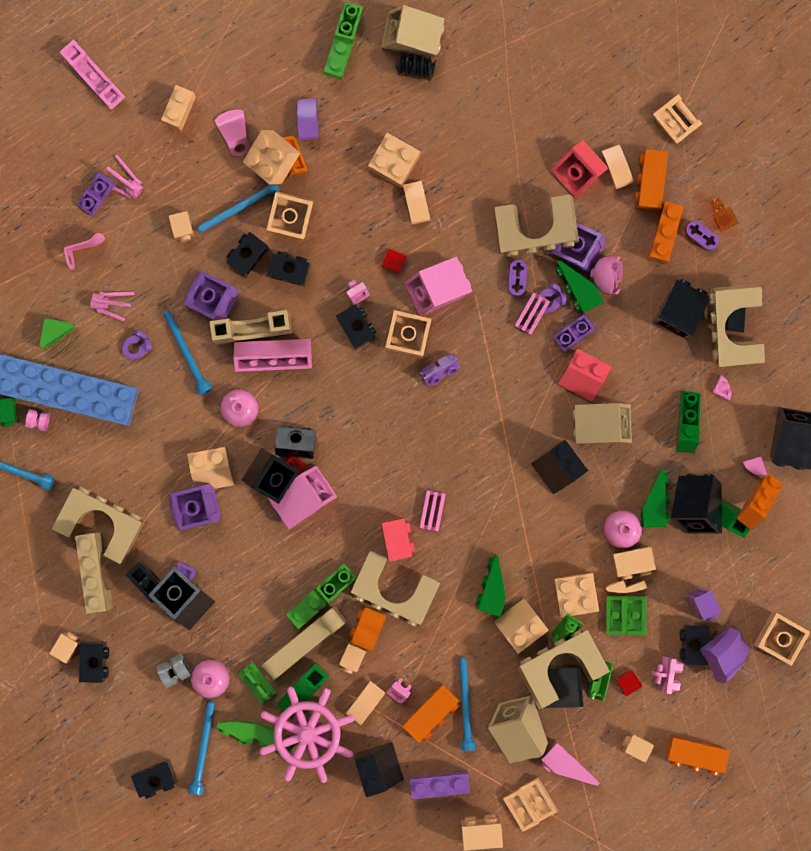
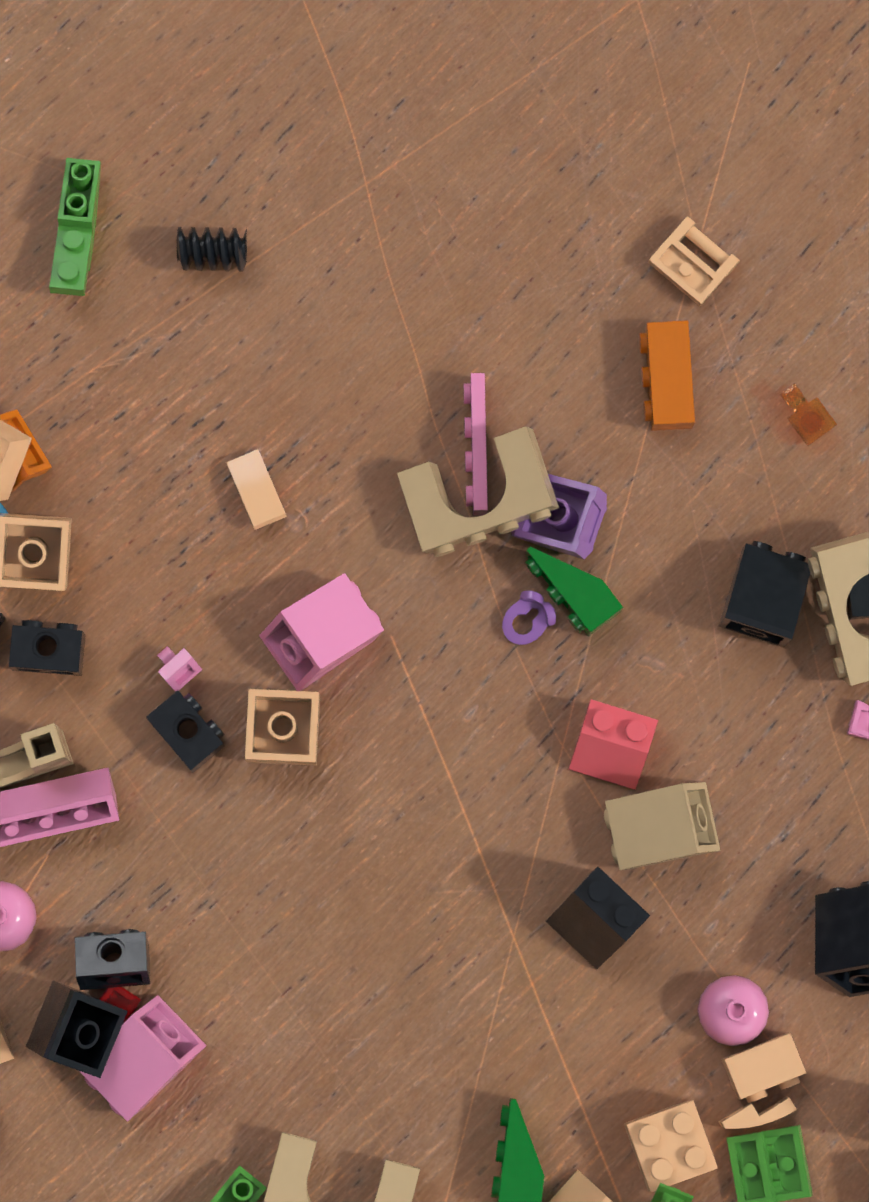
camera: 10 degrees left, 5 degrees down
(307, 119) = (35, 376): medium lavender slope -> none
(394, 160) = (202, 422): light nougat brick -> none
(394, 261) = (234, 601): red tile -> none
(397, 539) = (328, 1103): coral slope -> none
(413, 32) = (197, 190): tan slope -> none
(429, 526) = (383, 1070): bright pink tile -> none
(433, 374) = (365, 772): medium lavender hinge -> none
(522, 277) = (452, 591): medium lavender beam -> none
(524, 327) = (489, 678): bright pink tile -> none
(541, 191) = (476, 430): none -> bright pink plate
(574, 332) = (580, 671): medium lavender slope -> none
(579, 169) = (535, 378): coral slope -> none
(607, 274) = (620, 557): bright pink cylinder -> none
(617, 166) = (603, 362): light nougat slope -> none
(654, 506) = (782, 958): green slope -> none
(665, 233) = (710, 464): orange brick -> none
(688, 422) = (815, 796): green slope -> none
(704, 232) = (780, 451): medium lavender beam -> none

